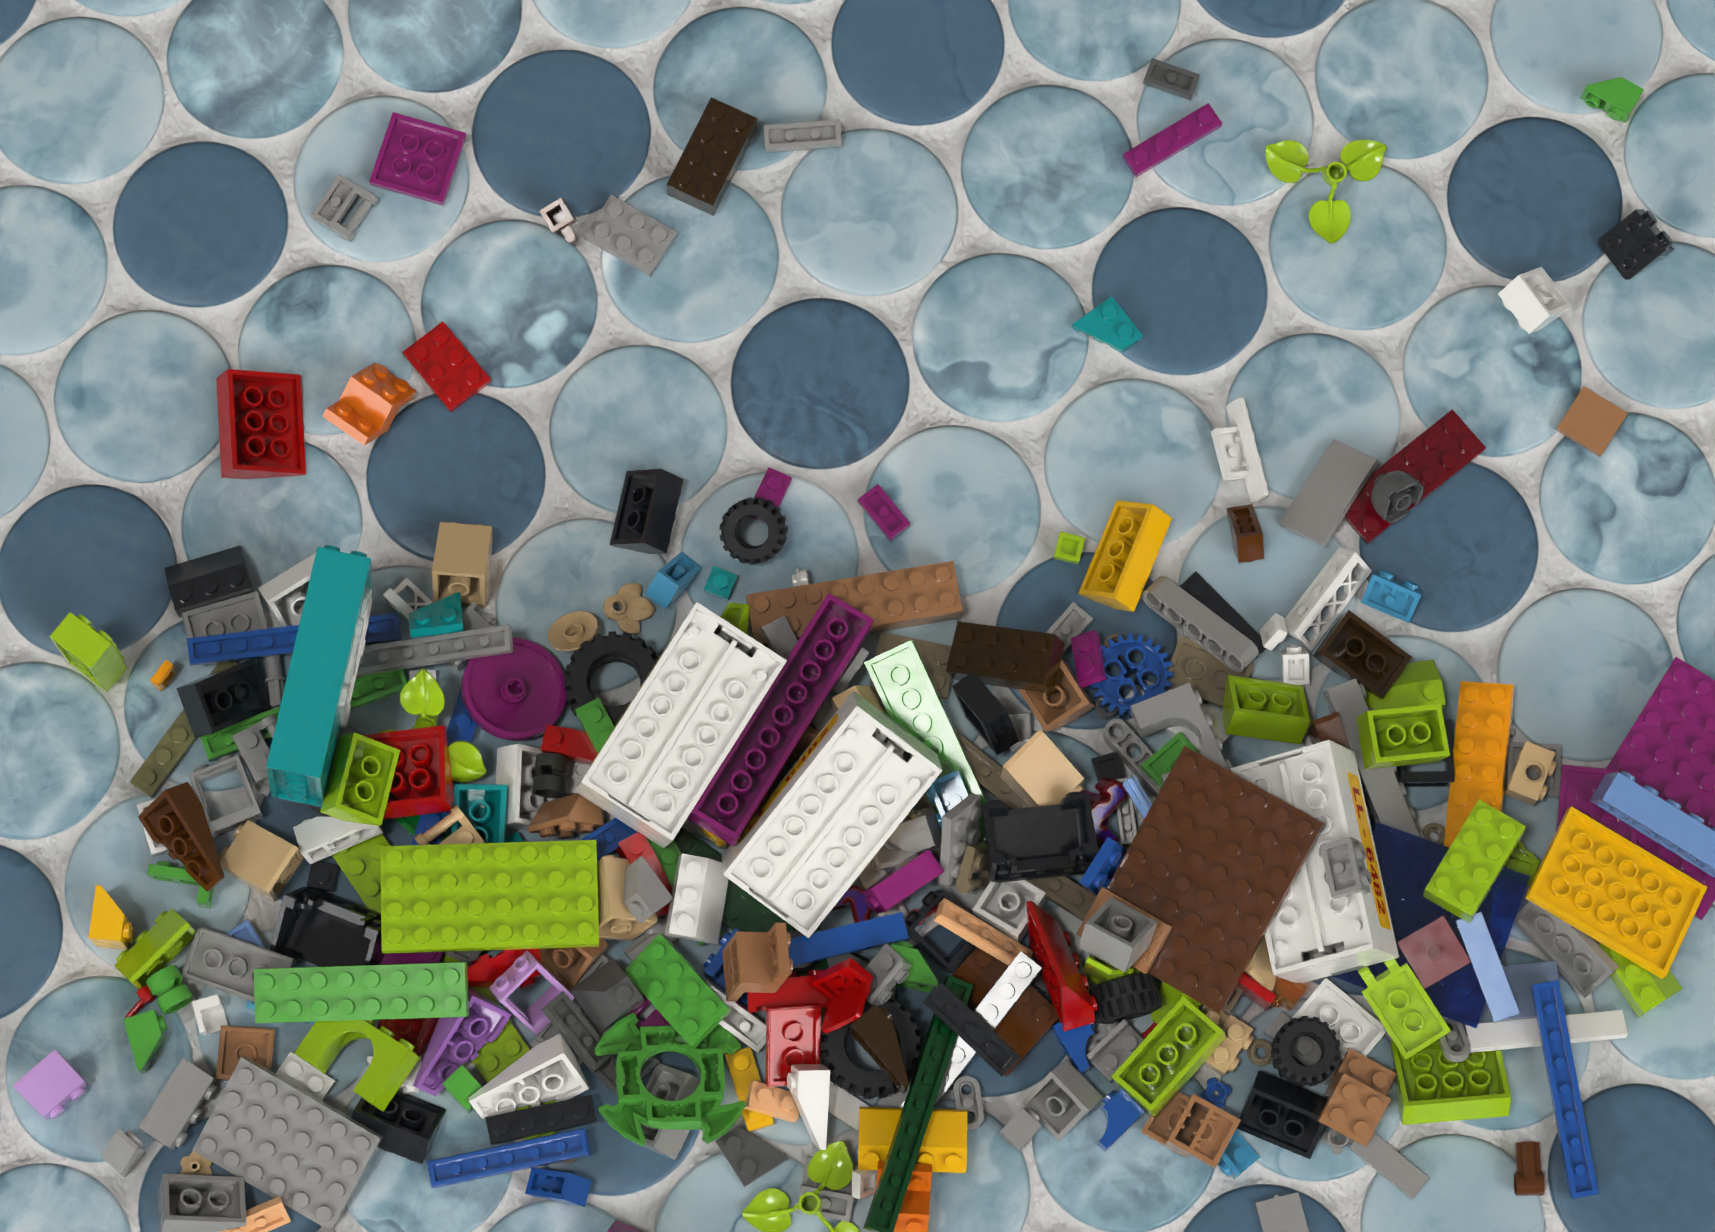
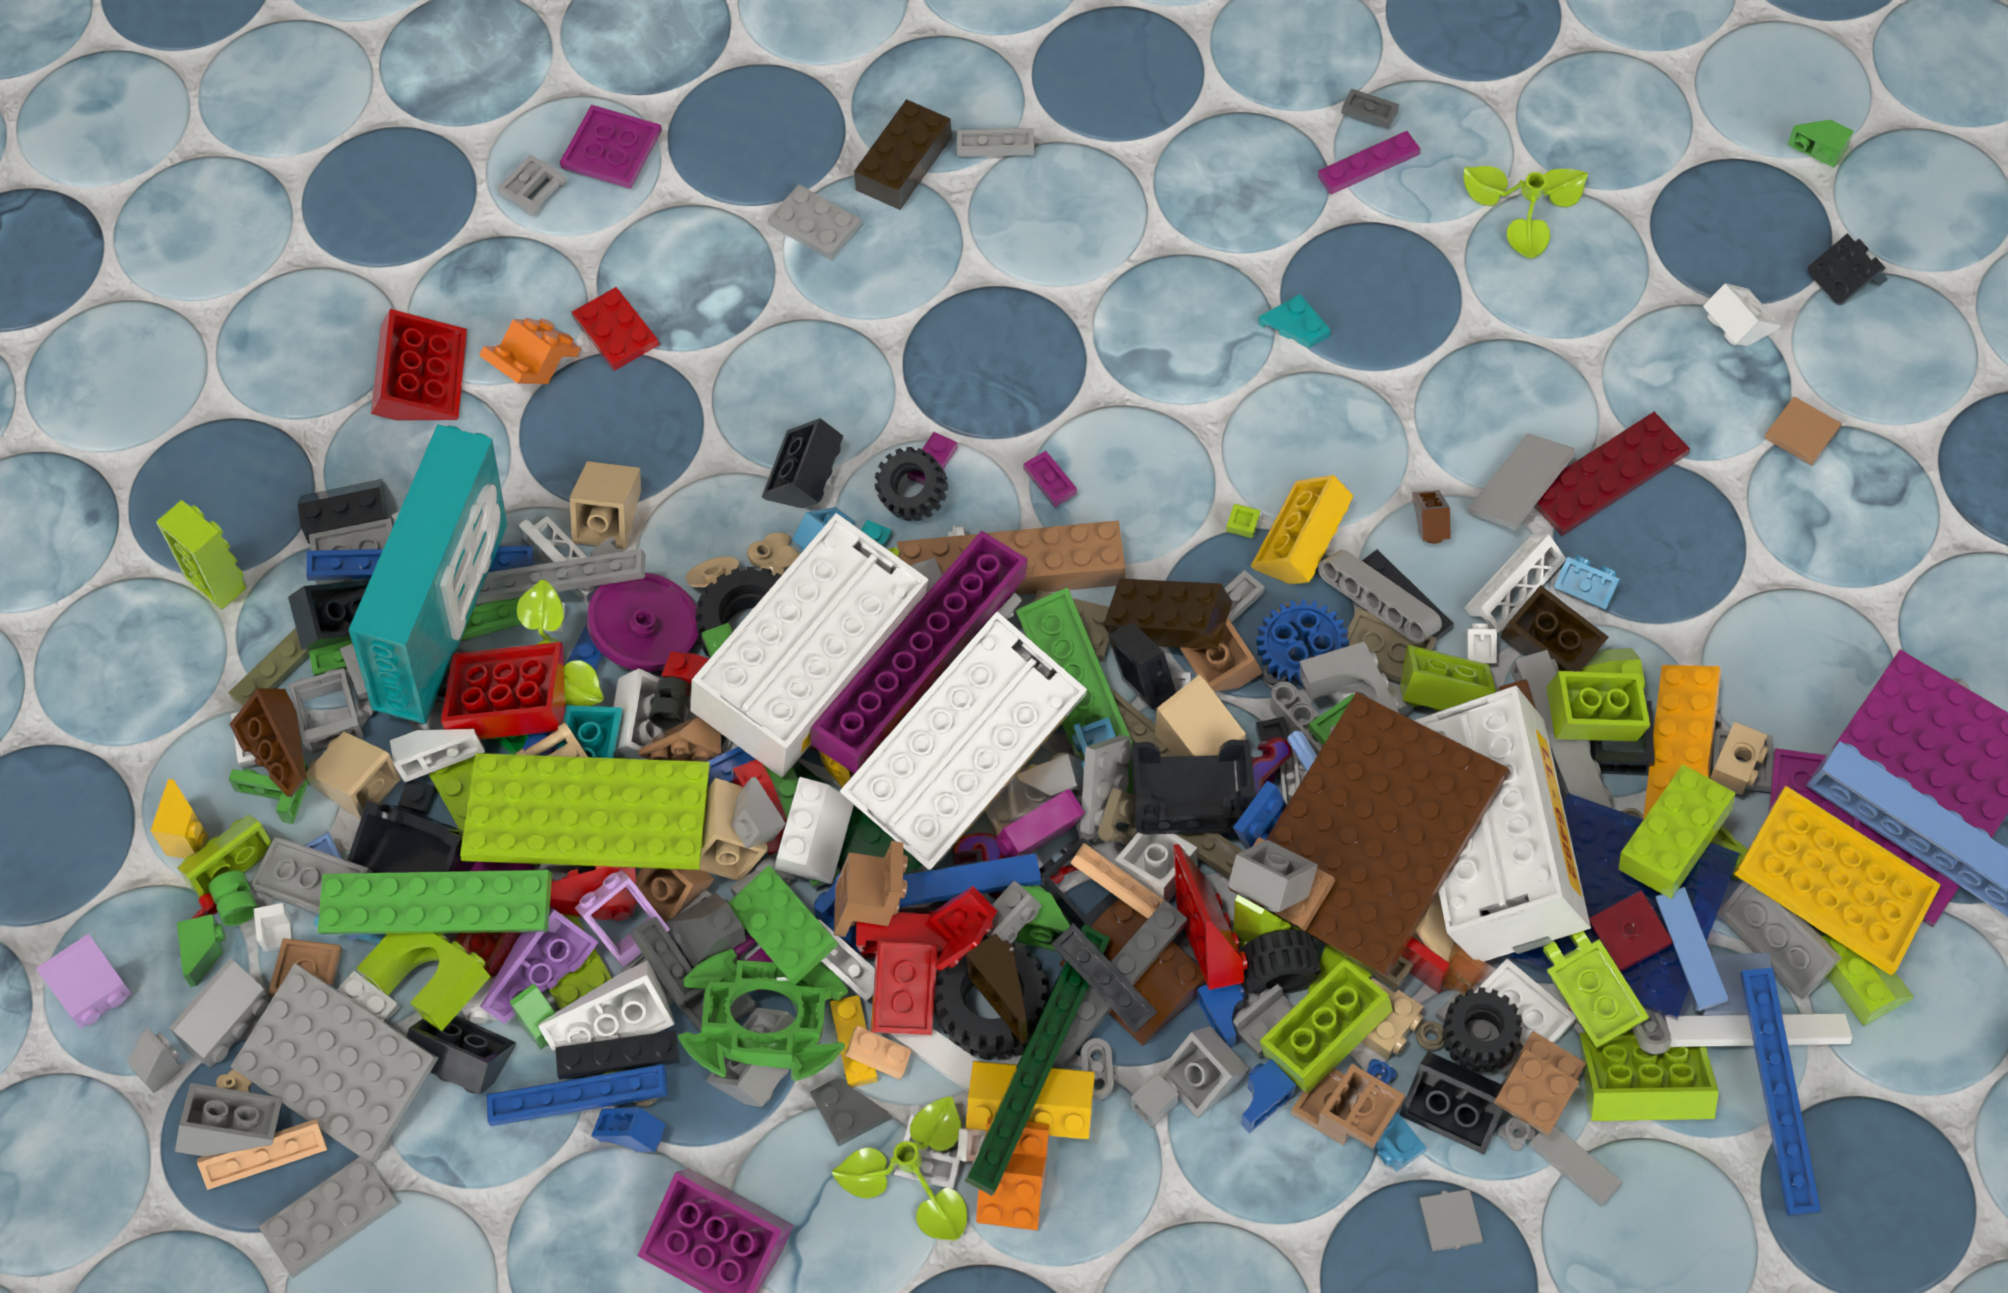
camera: 10 degrees right, 15 degrees down
(163, 675) = (278, 593): light orange tile -> none
(360, 780) = (463, 687): lime slope -> none
(437, 618) = (570, 546): teal wing -> none
(559, 219) = (745, 200): brick -> none
(811, 1094) = (919, 1045): white slope -> none
(1088, 658) = (1257, 620): magenta plate -> none
(1238, 451) = (1427, 439): white bracket -> none
(1273, 631) = (1459, 608): white plate -> none
(1346, 867) = (1532, 812): light grey bracket -> none
(1394, 494) = (1593, 480): dark grey cylinder -> none
(1528, 1173) = (1737, 1186): reddish brown piece -> none

